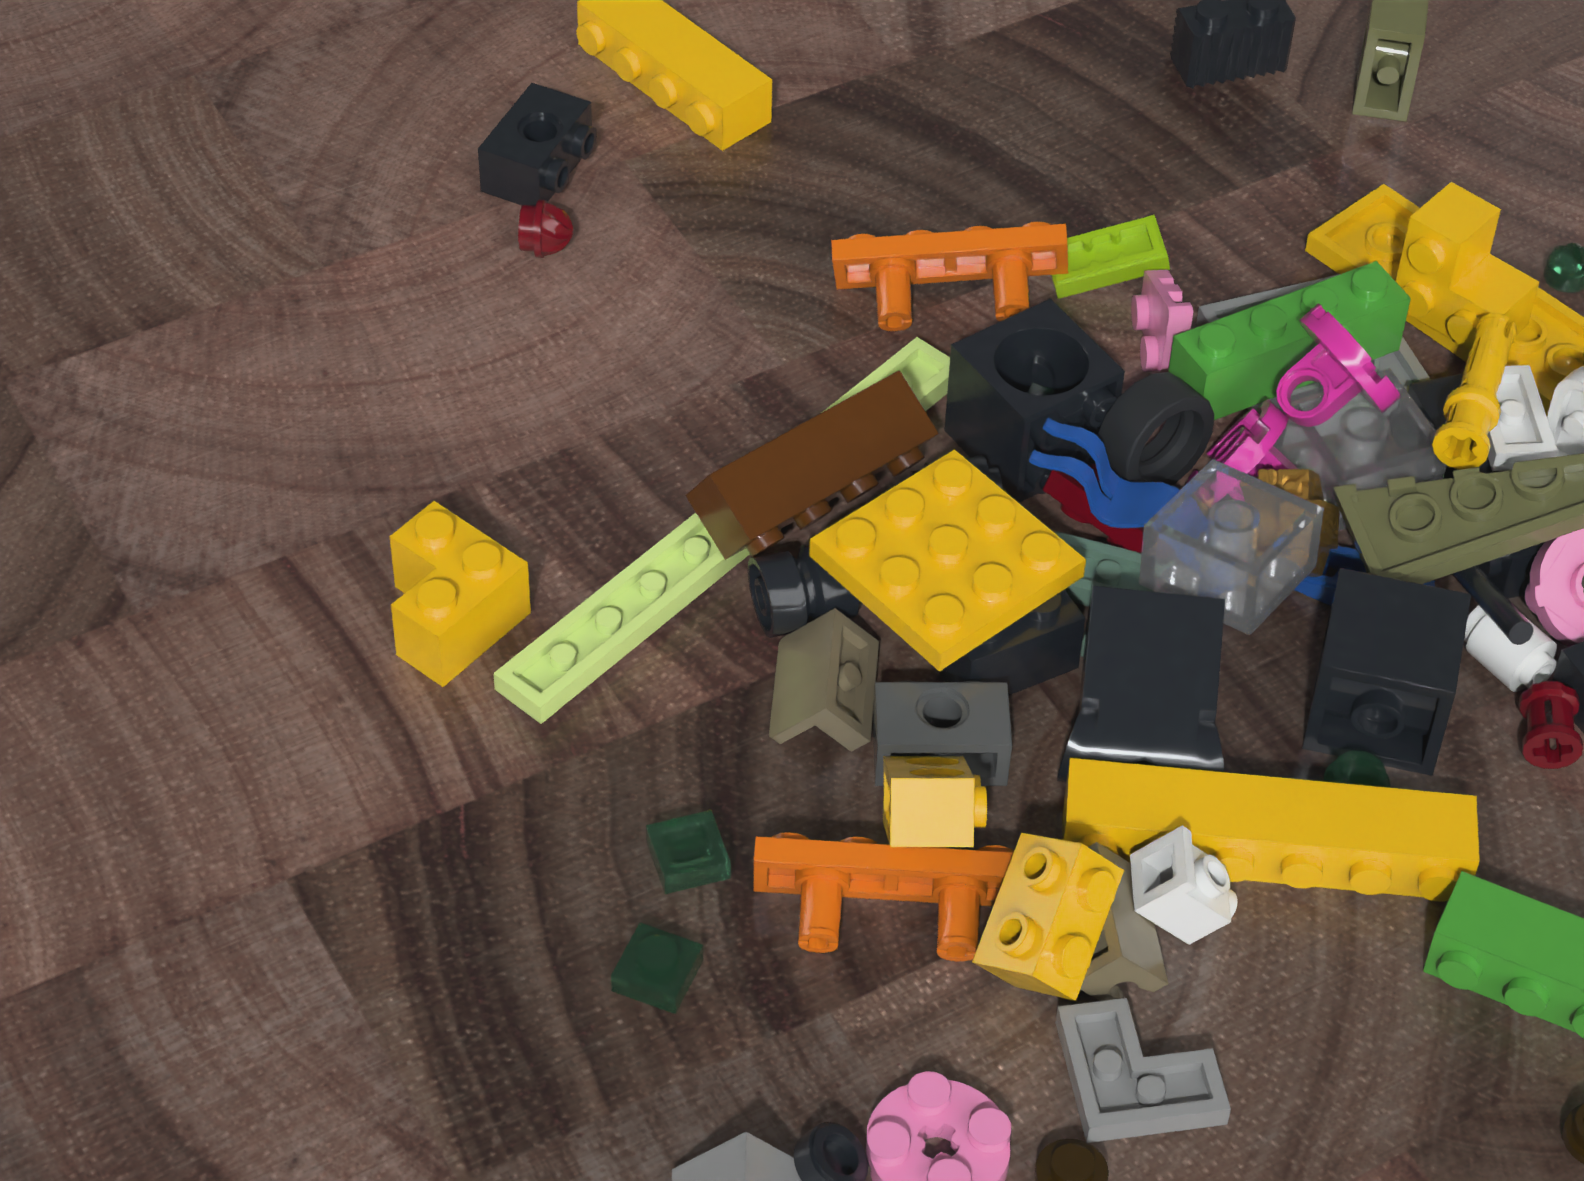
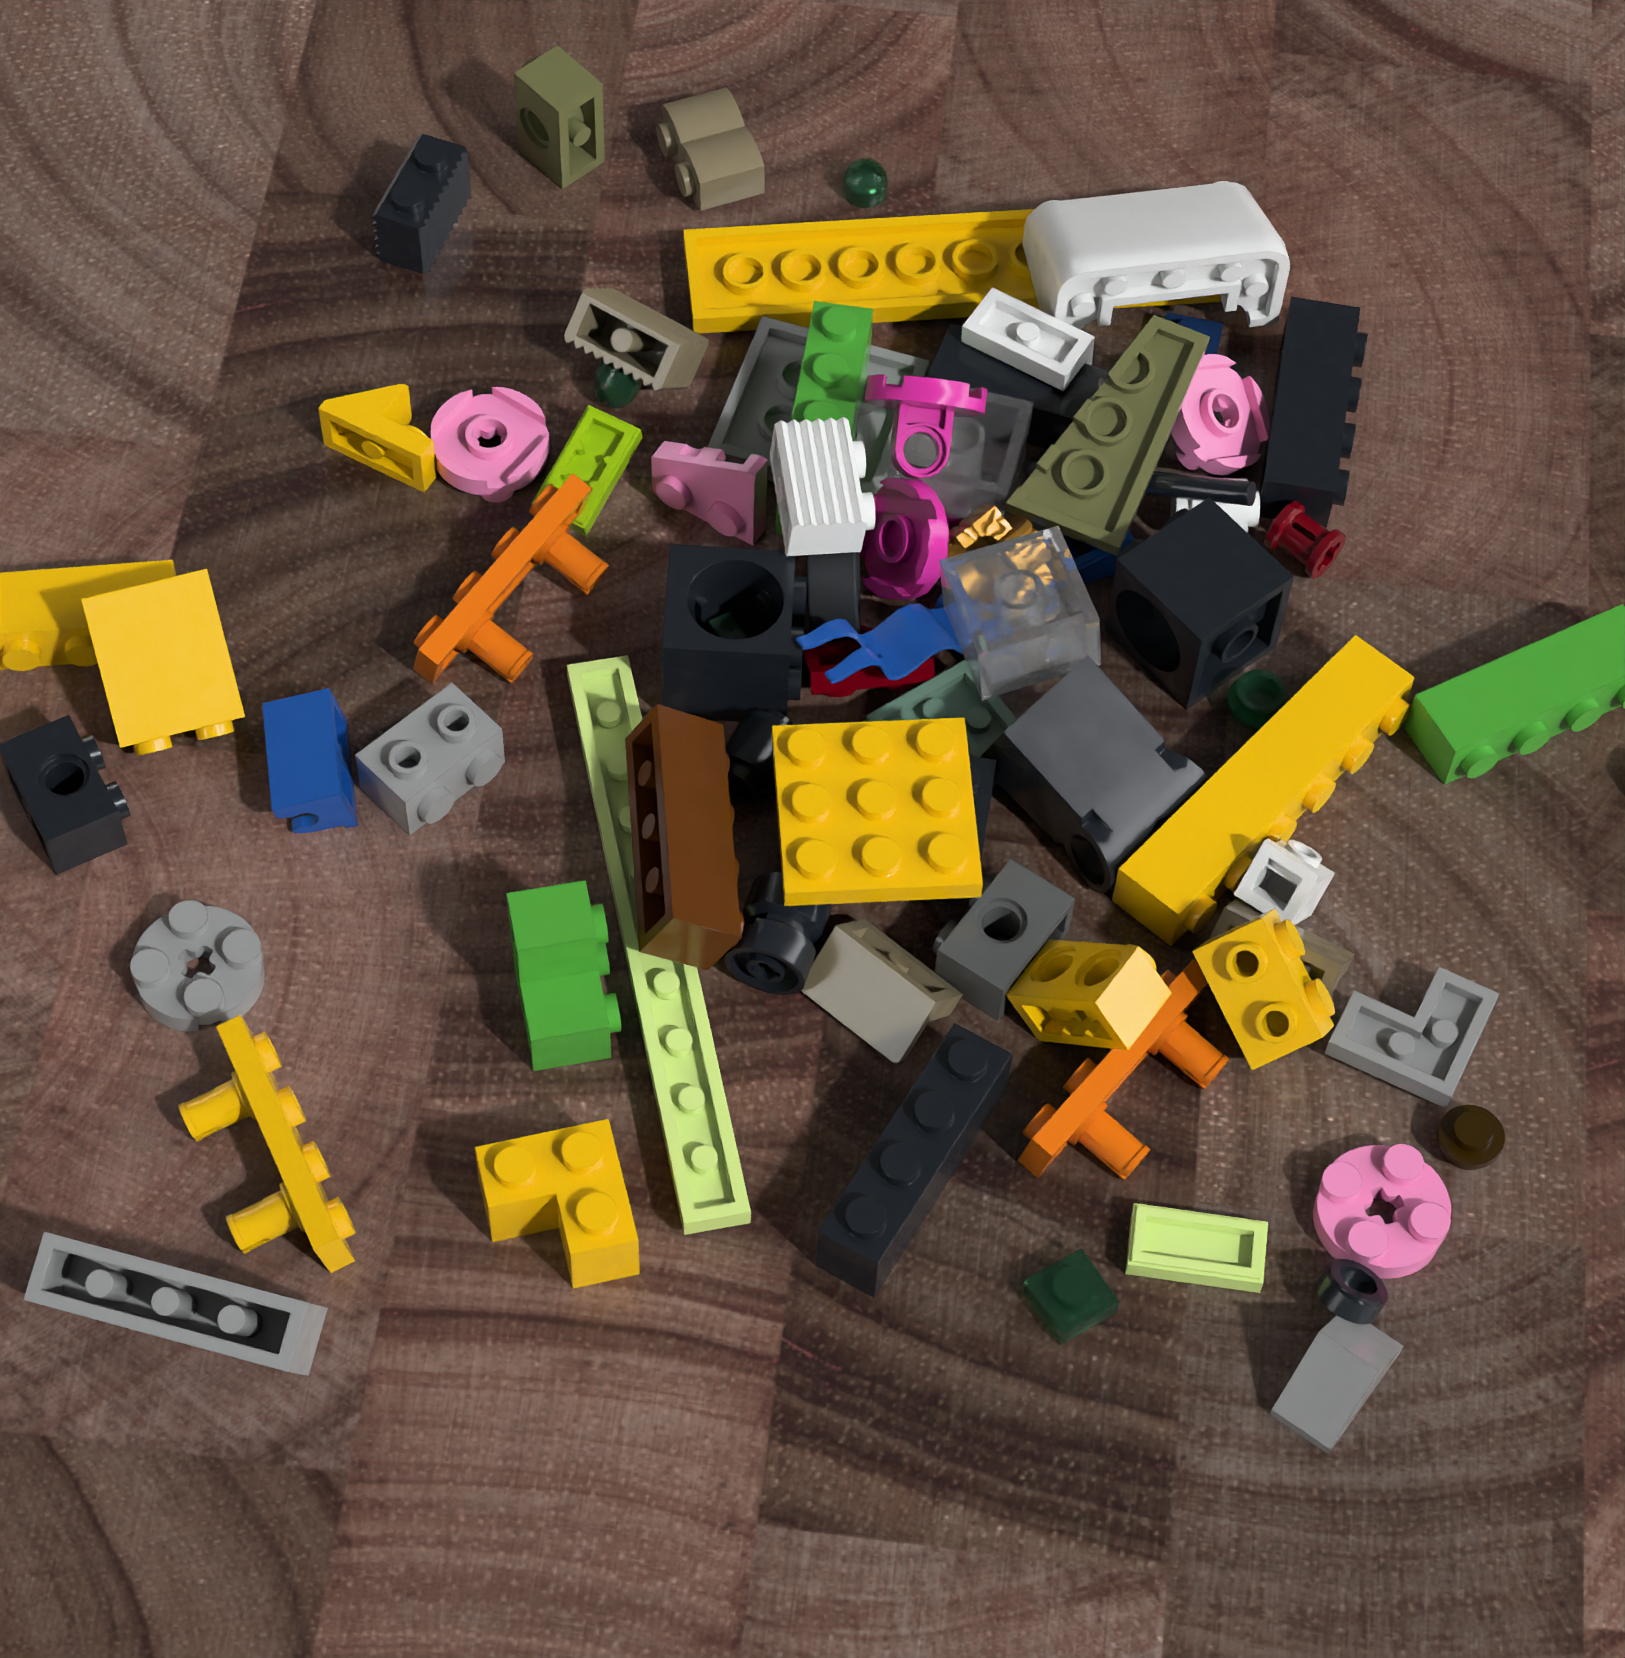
camera: 55 degrees left, 10 degrees up
(174, 427) = (175, 1304): none -> light grey brick
(378, 394) = (301, 1165): none -> yellow plate
(490, 276) = (194, 933): none -> light grey plate
(543, 229) = (171, 855): dark red plate -> none
(626, 782) = (913, 1160): none -> black brick
(640, 477) = (558, 969): none -> bright green brick
(682, 119) = (164, 661): none -> yellow brick
(688, 852) = (980, 1198): clear green plate -> none
(692, 253) = (310, 762): none -> blue hinge
(759, 312) = (431, 759): none -> light grey brick
(781, 1032) = (1196, 1248): none -> yellowish green tile
(1011, 129) = (377, 432): none -> yellow slope
(1099, 189) = (494, 470): none -> bright pink plate
(1185, 340) = (819, 487): none -> white brick
(1205, 230) = (615, 386): none -> clear green hinge
(1246, 210) = (636, 339): none -> dark tan brick
(1451, 269) = (862, 260): yellow brick -> none
(1473, 406) = (1018, 355): yellow pin -> none
(1482, 154) = (711, 149): none -> dark tan brick

